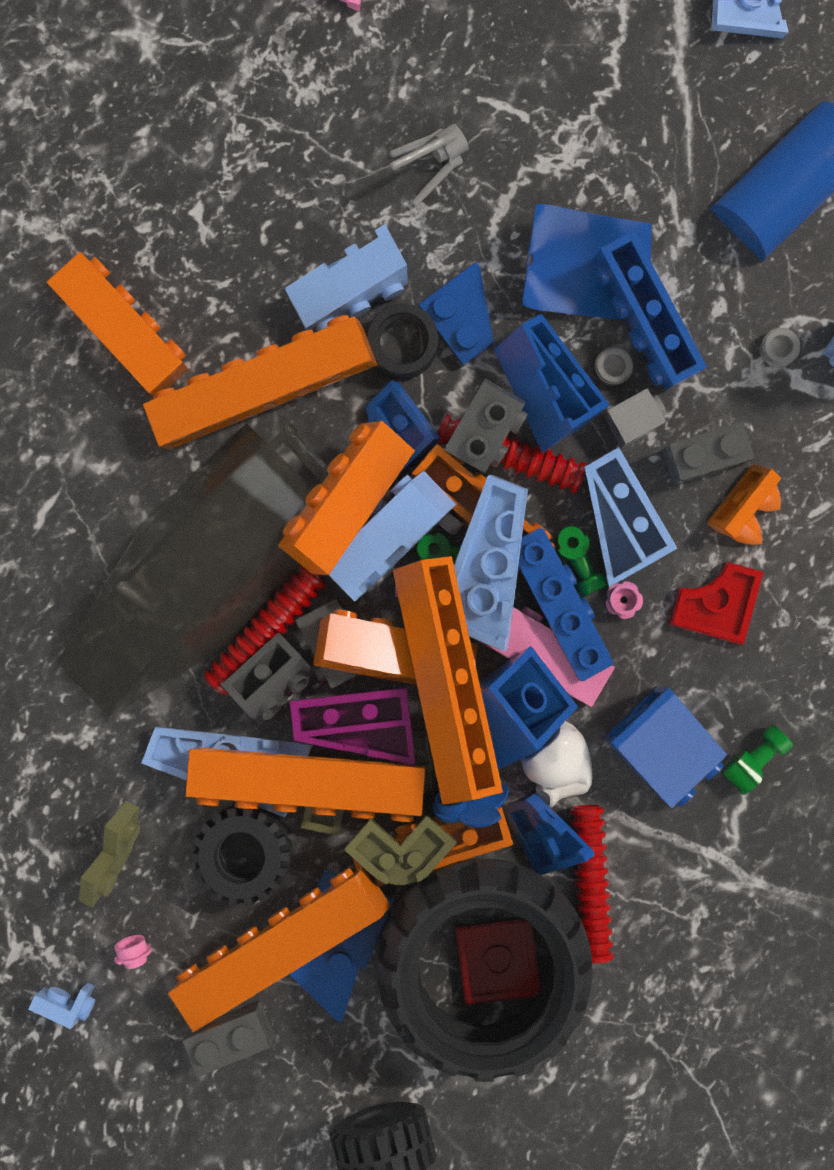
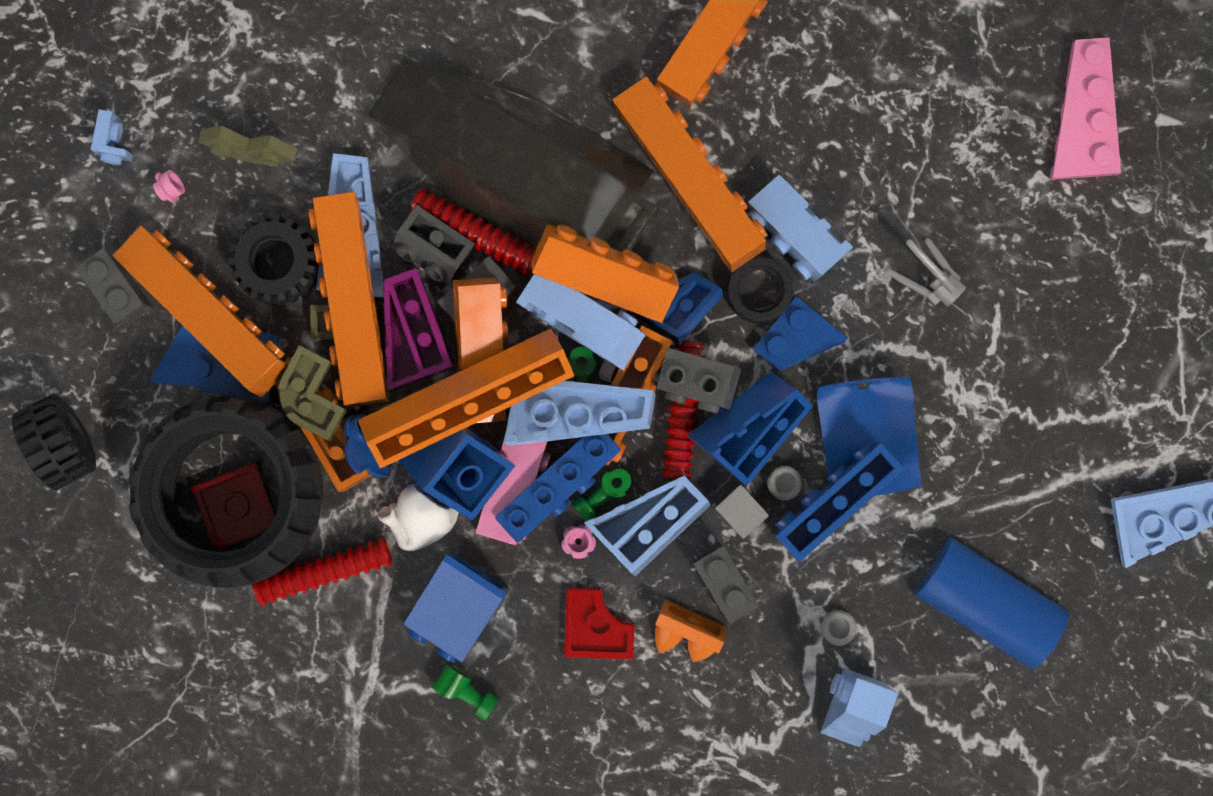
camera: 70 degrees right, 0 degrees up
(545, 836) = (353, 519): blue wing -> none

